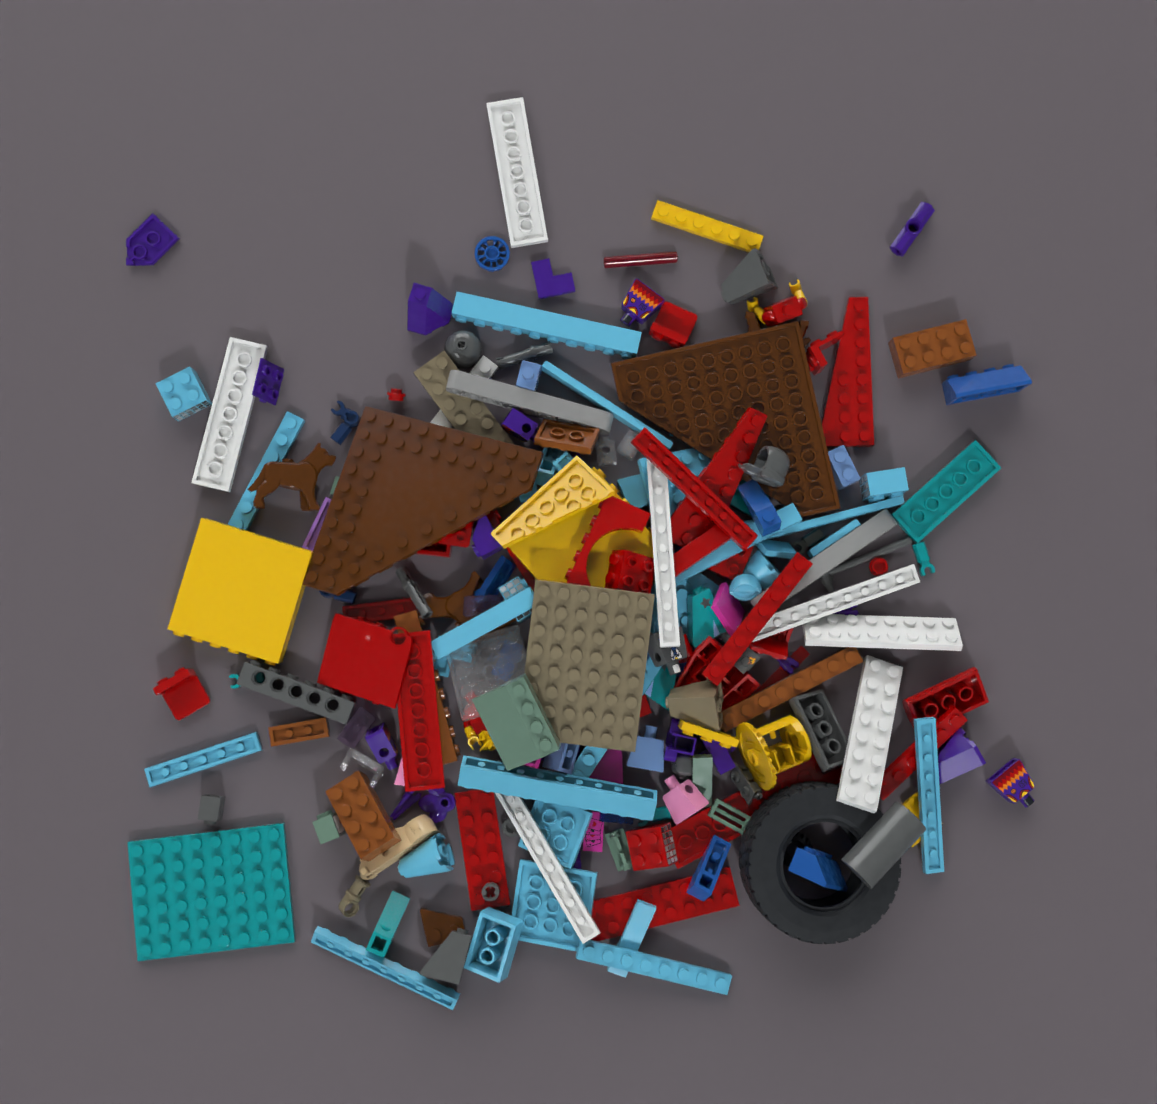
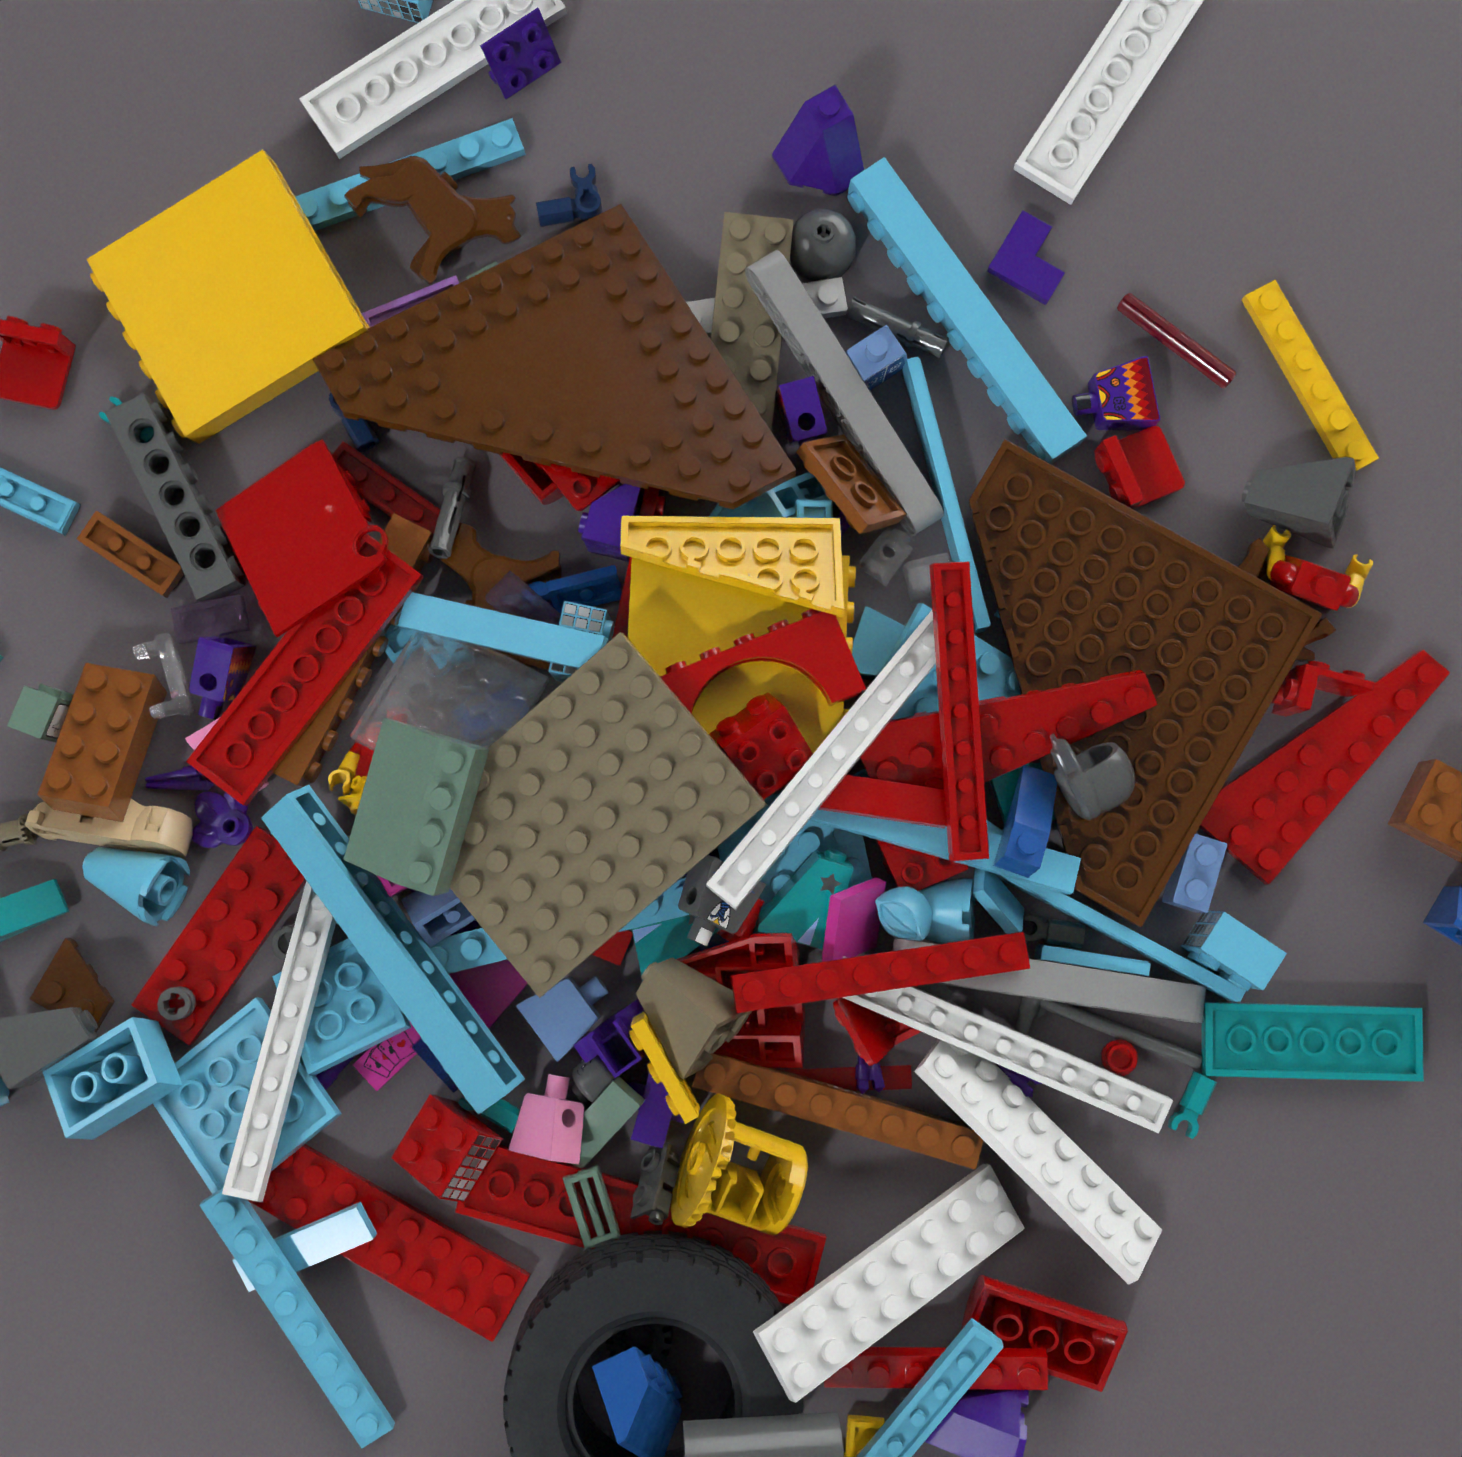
camera: 45 degrees right, 0 degrees up
(396, 395) = (675, 225): red plate -> none
(492, 253) = (980, 153): blue wheel -> none
(619, 849) = (402, 1109): sand green hinge -> none
(709, 869) = (495, 1253): blue slope -> none
(747, 660) = (813, 1016): dark grey piece -> none
(822, 728) = (830, 1208): dark grey brick -> none

